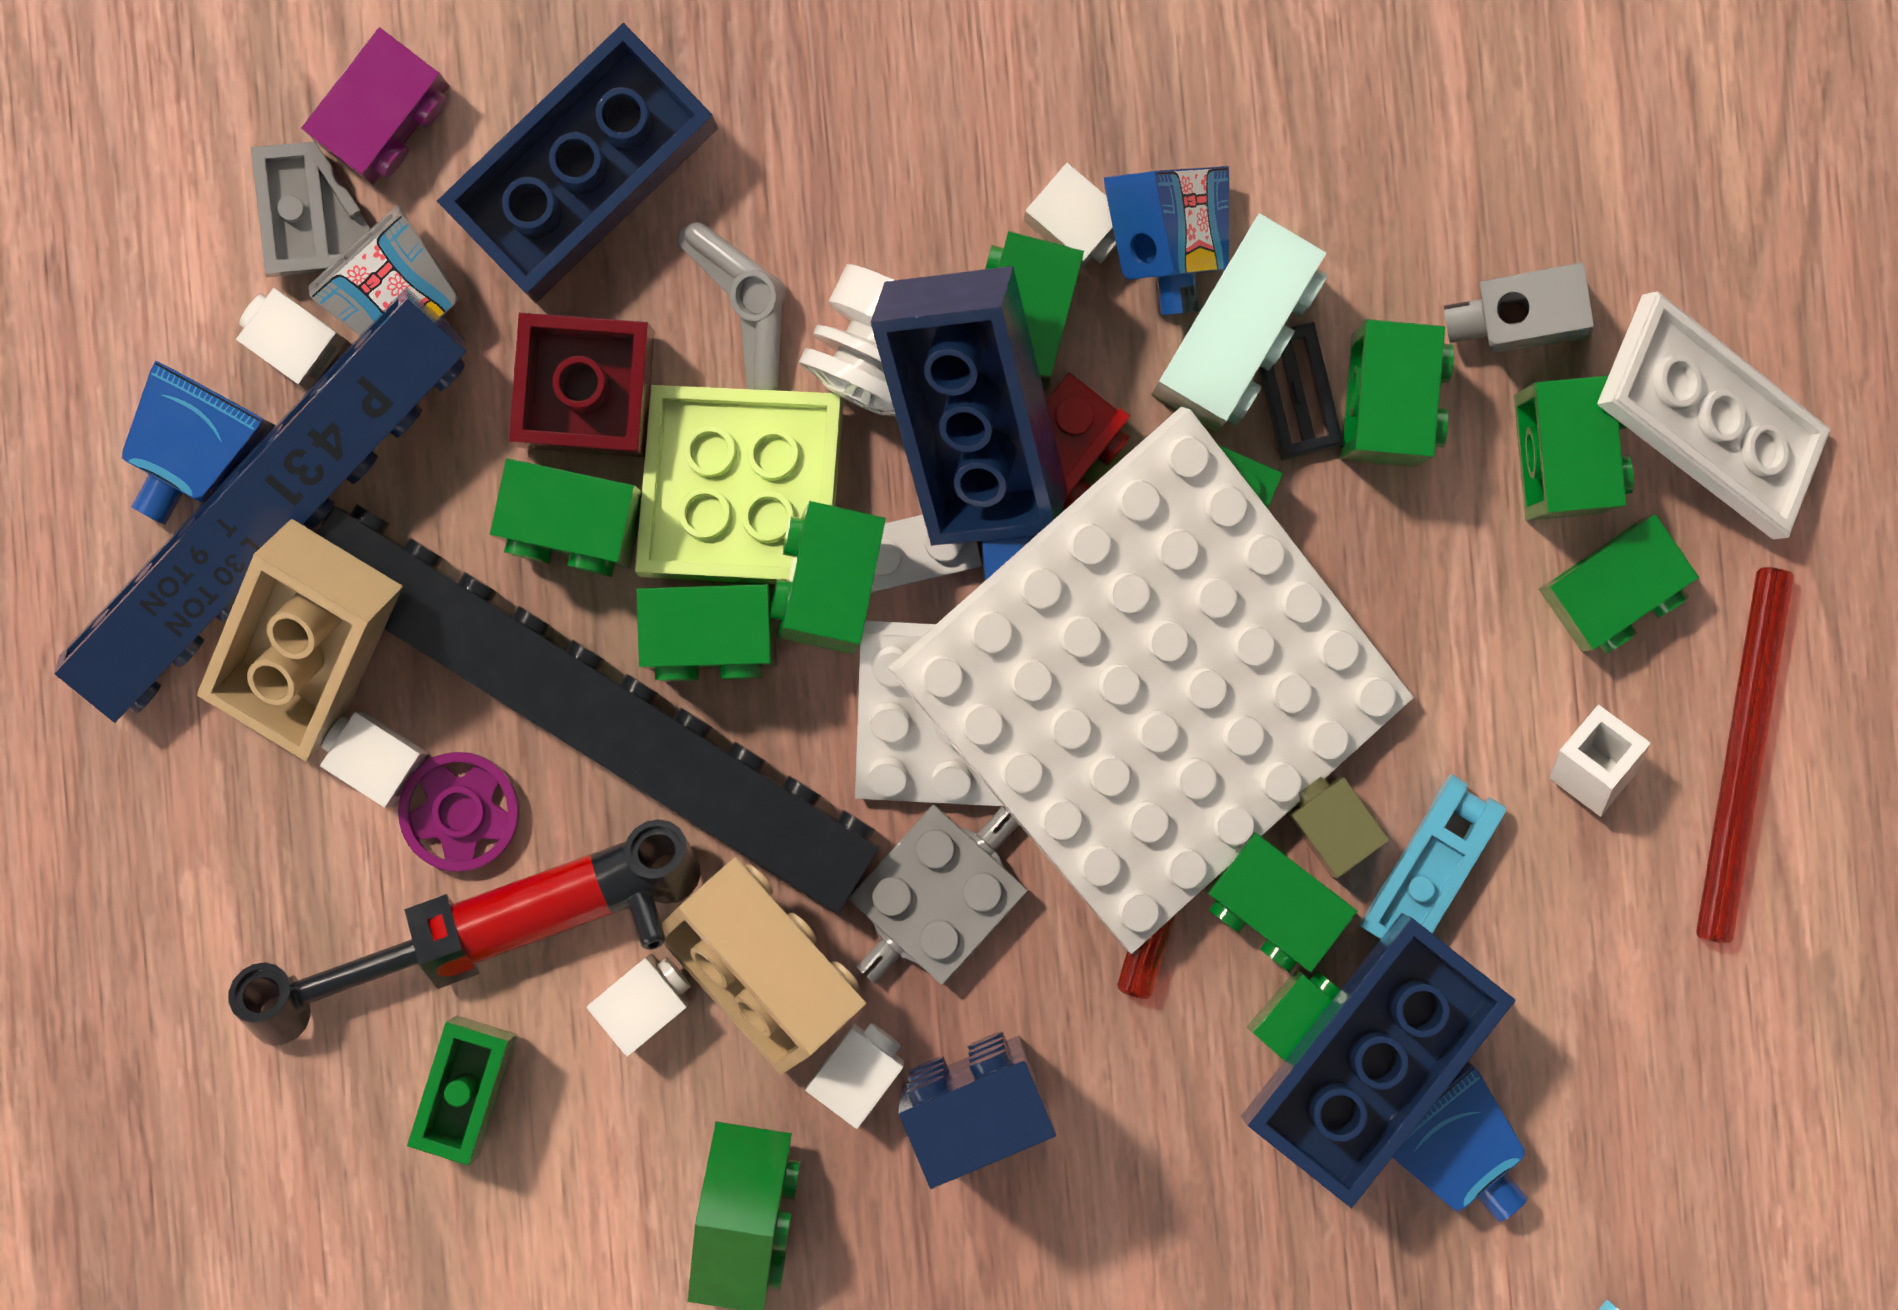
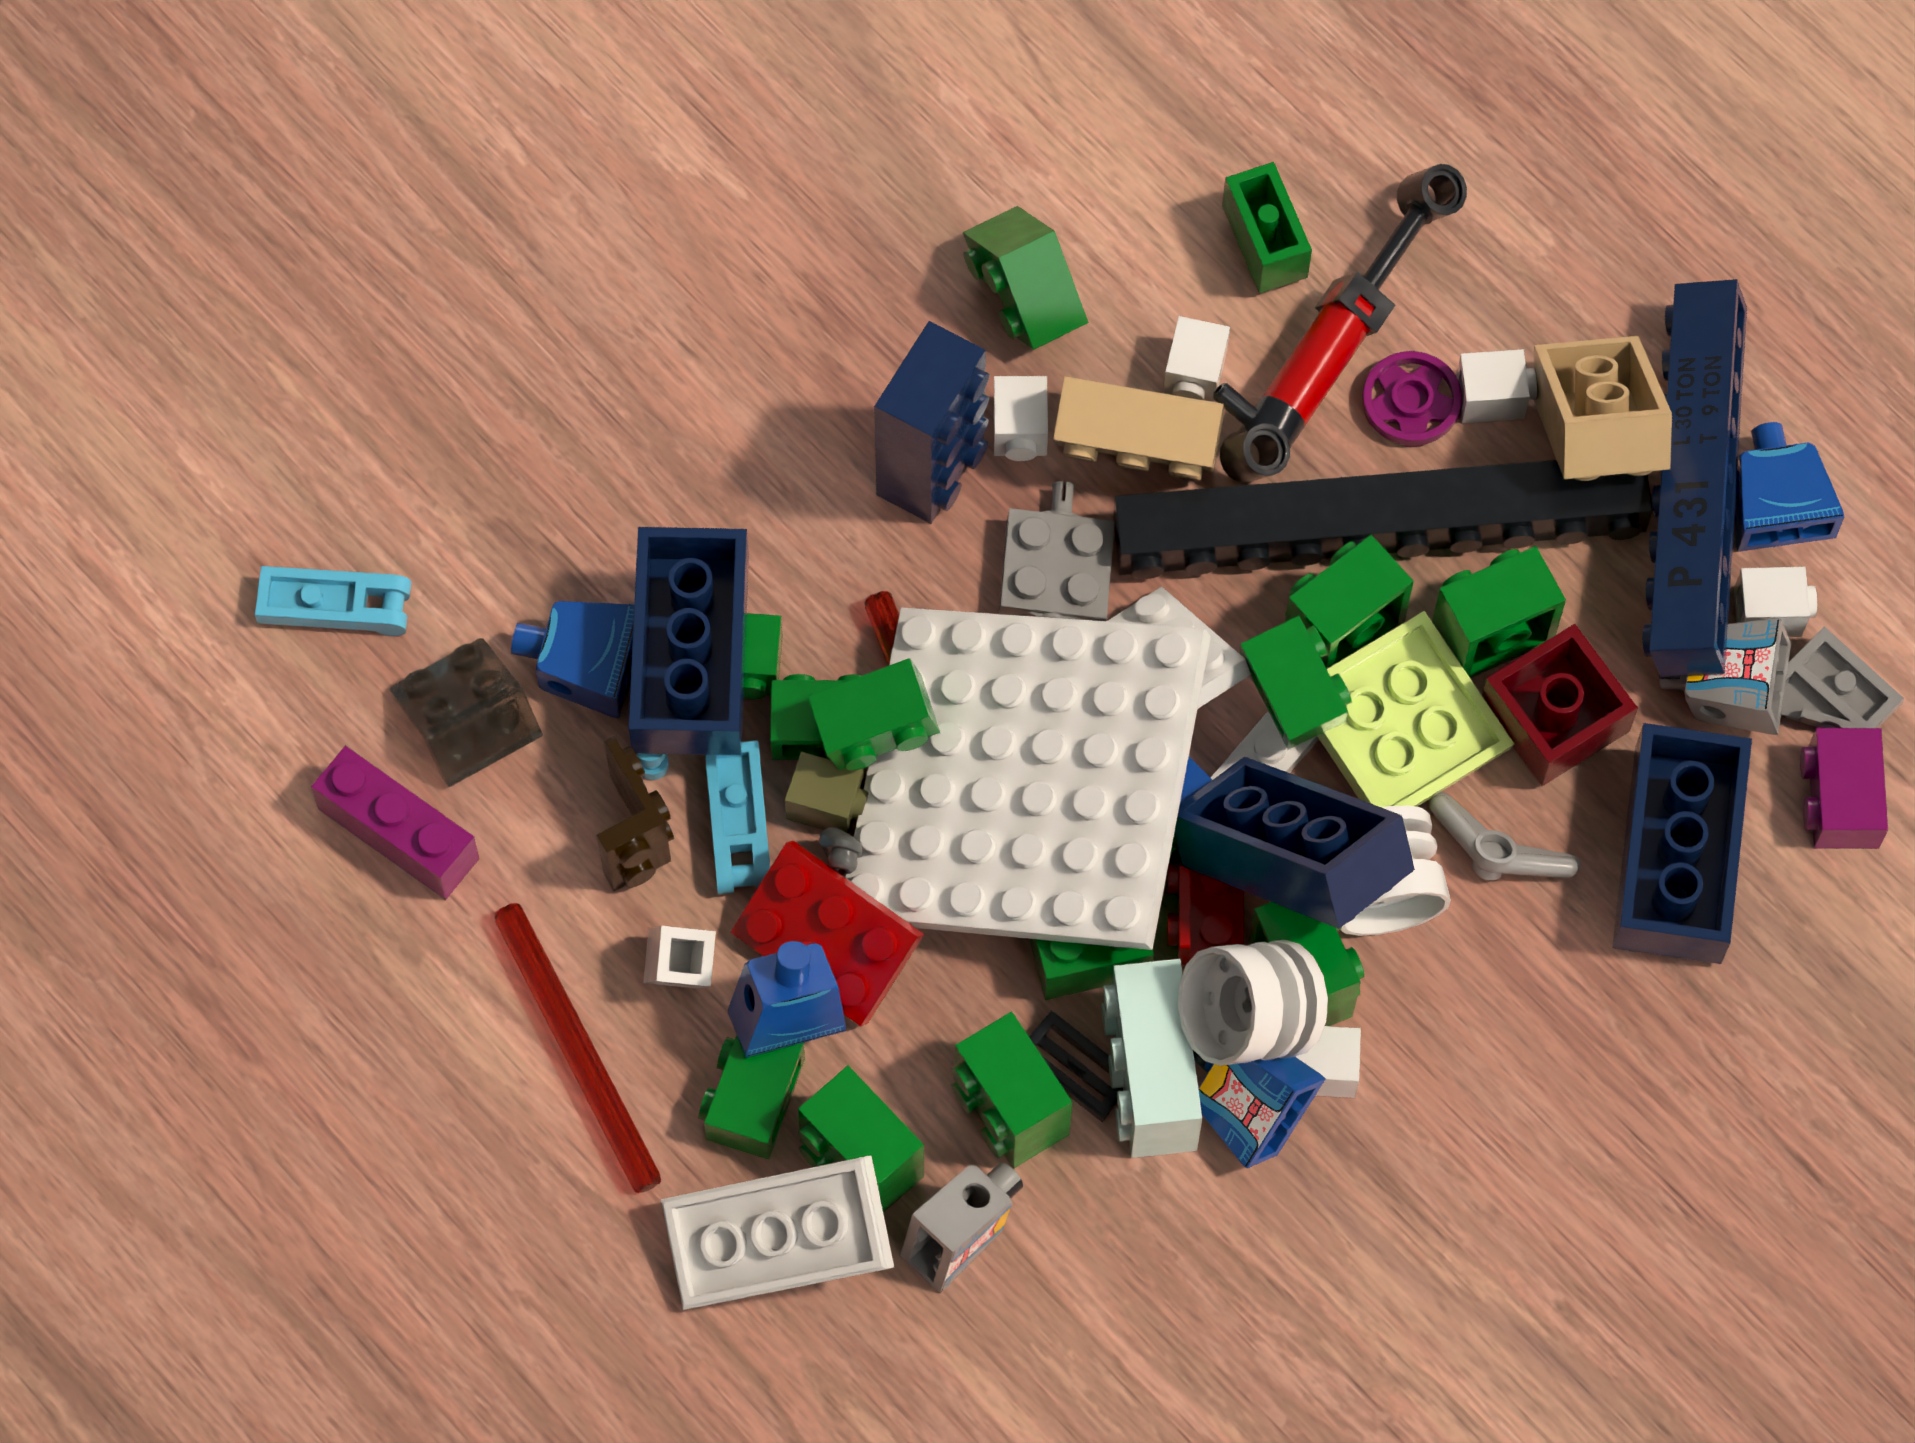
camera: 145 degrees right, 20 degrees down
(1135, 275) = (1252, 1002): none -> white wheel
(1256, 849) = (874, 715): none -> green brick
(1367, 756) = (840, 849): none -> dark grey arm
(1441, 683) = (815, 904): none -> red plate
(1528, 916) = (640, 843): none -> dark brown bracket
(1547, 625) = (786, 999): none -> blue torso
(1611, 1173) = (467, 710): none -> clear smoke bracket
(1763, 1102) = (395, 822): none -> magenta brick

